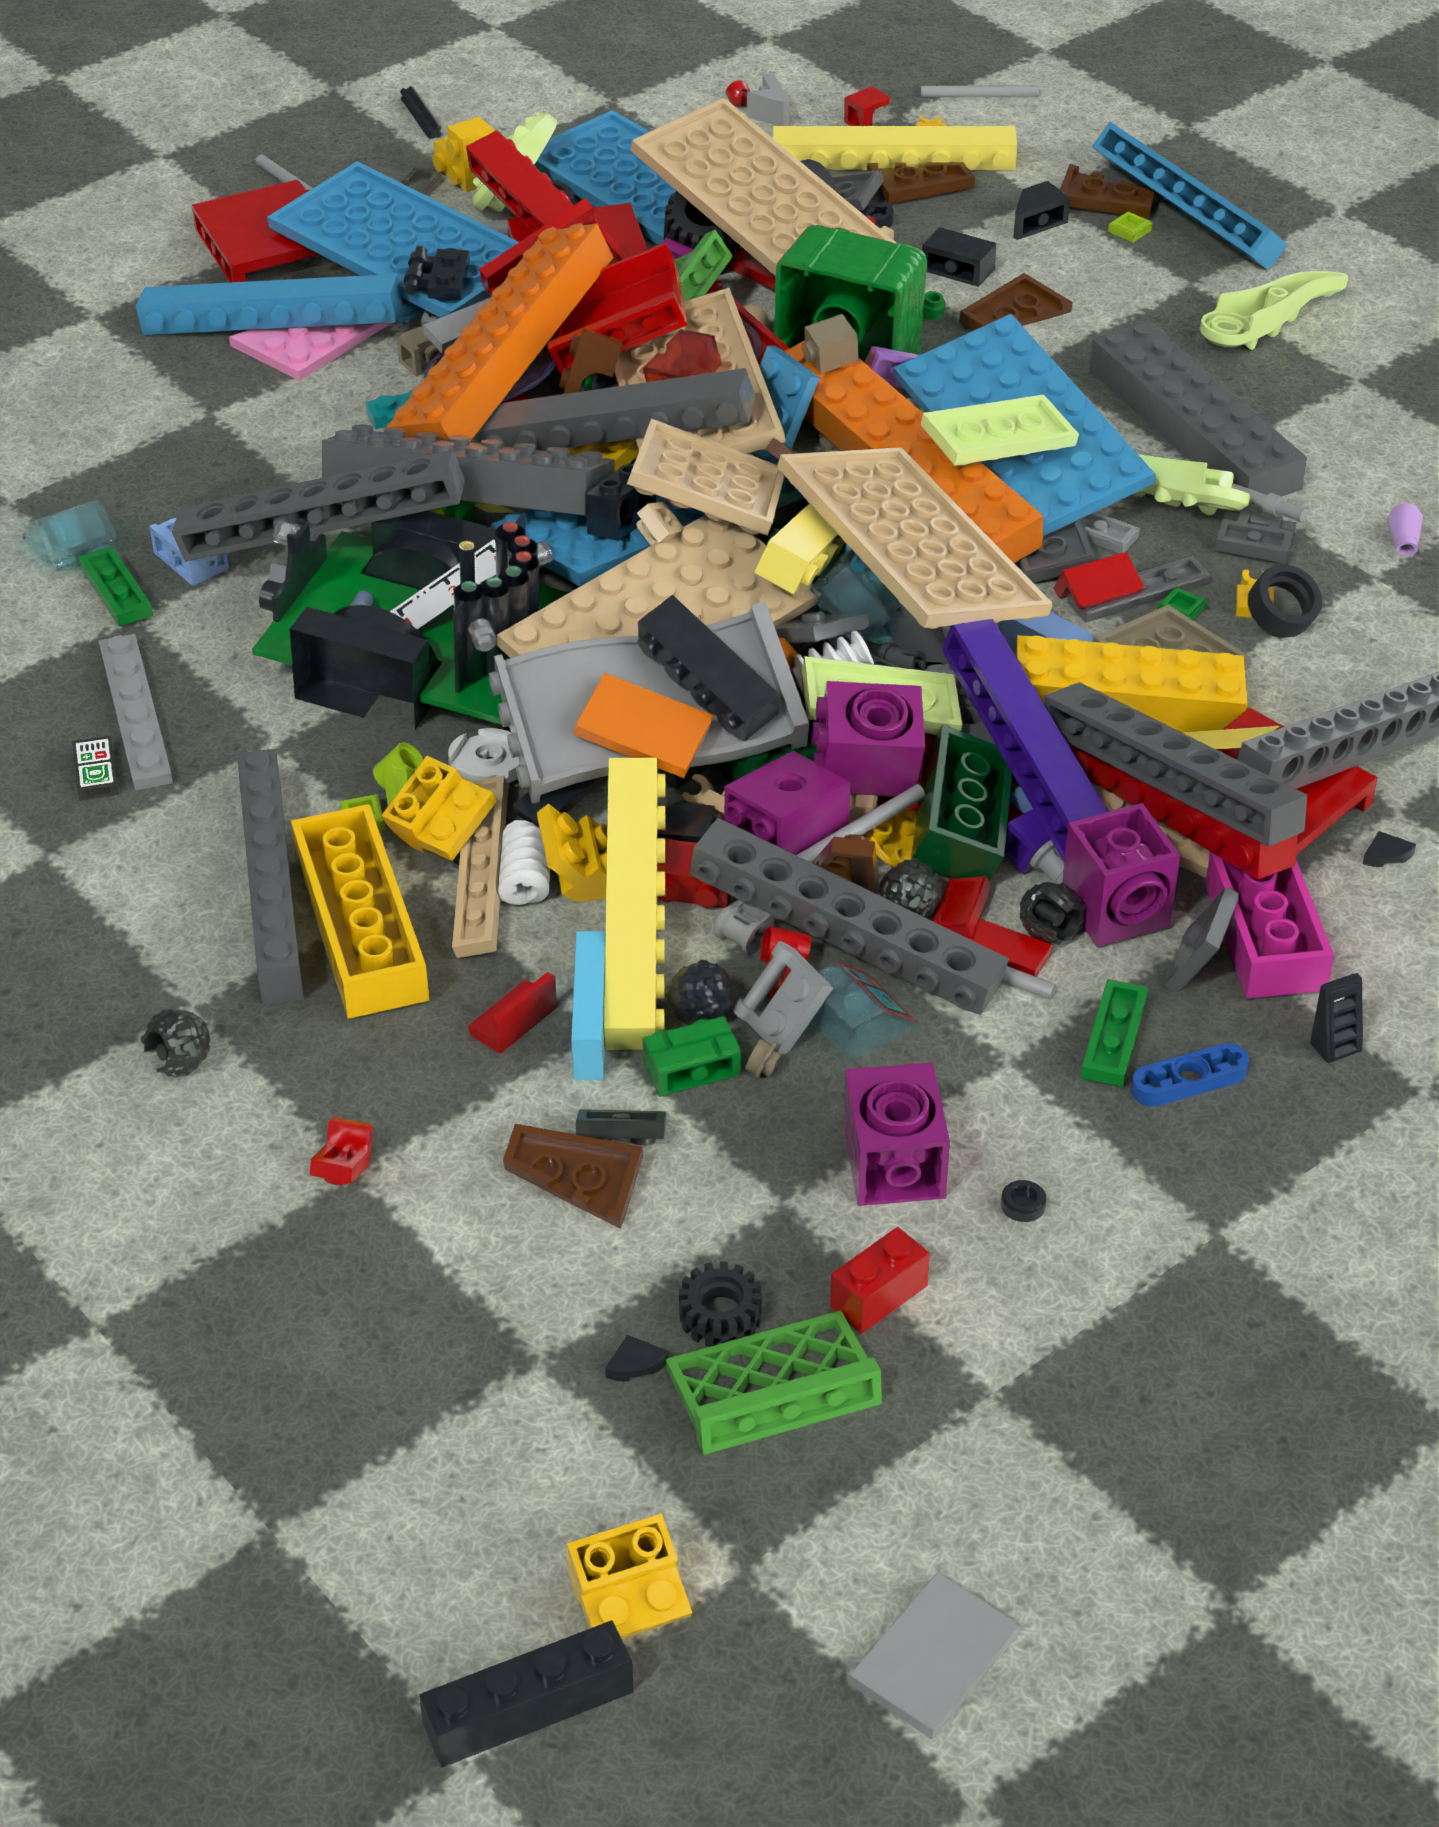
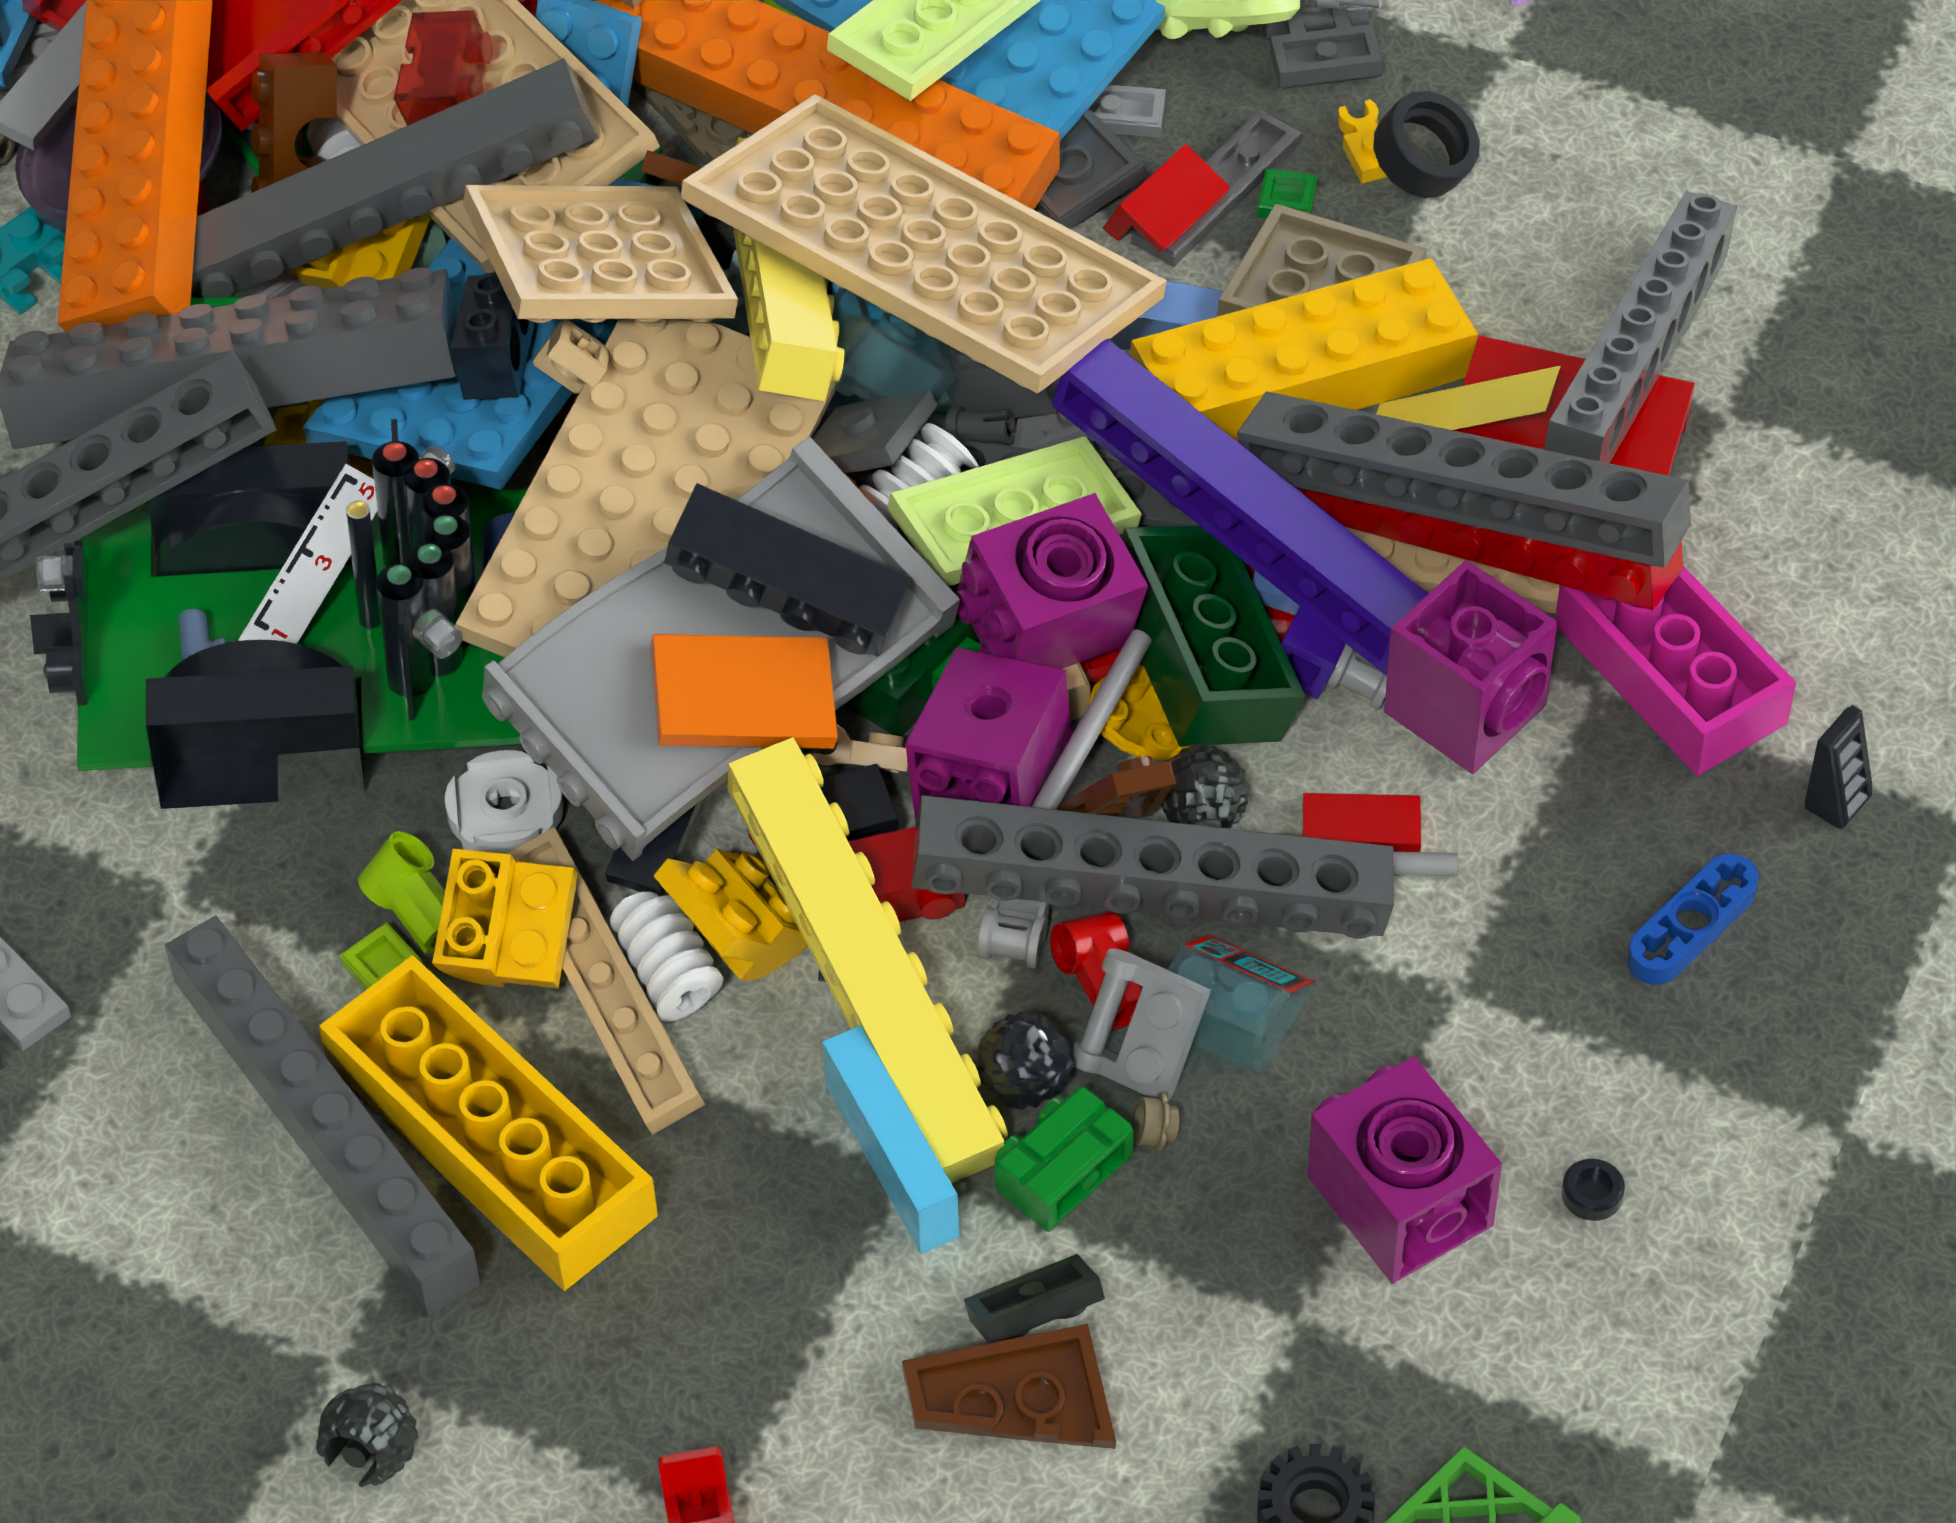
camera: 25 degrees left, 10 degrees up
(515, 1013) = (787, 1190): red panel -> none
(879, 1279) = (1495, 1385): red brick -> none
(963, 904) = (1277, 787): red tile -> none
(1052, 912) = (1400, 751): pearl dark grey piece -> none
(1114, 1033) = (1571, 896): green plate -> none
(1202, 940) = (1614, 719): dark grey plate -> none
(1388, 849) = (1749, 482): black tile -> none

